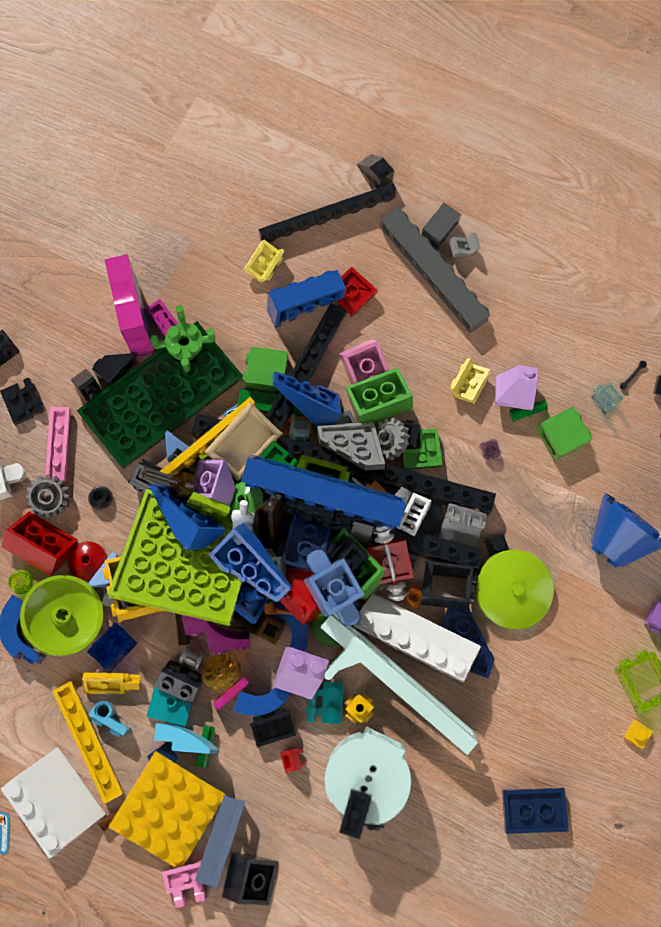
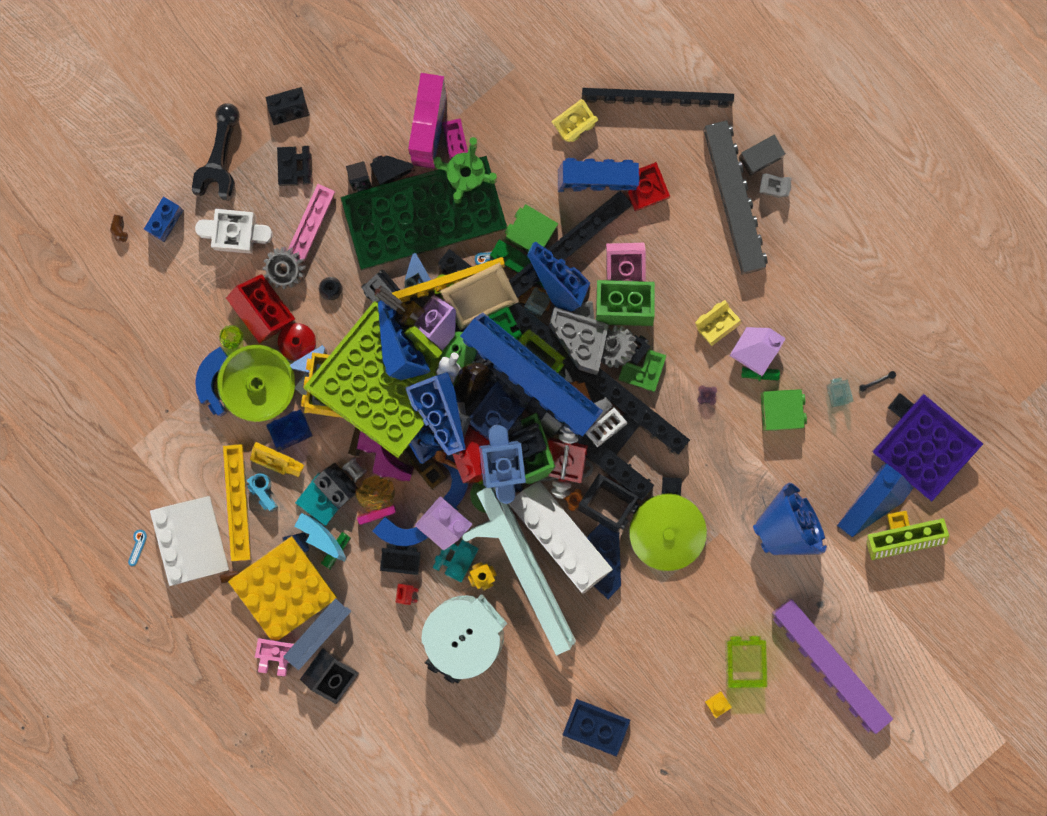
camera: 25 degrees right, 10 degrees up
(355, 813) = (438, 661): black plate -> none
(377, 170) = (725, 71): black slope -> none
(462, 525) = (647, 455): light grey hinge -> none

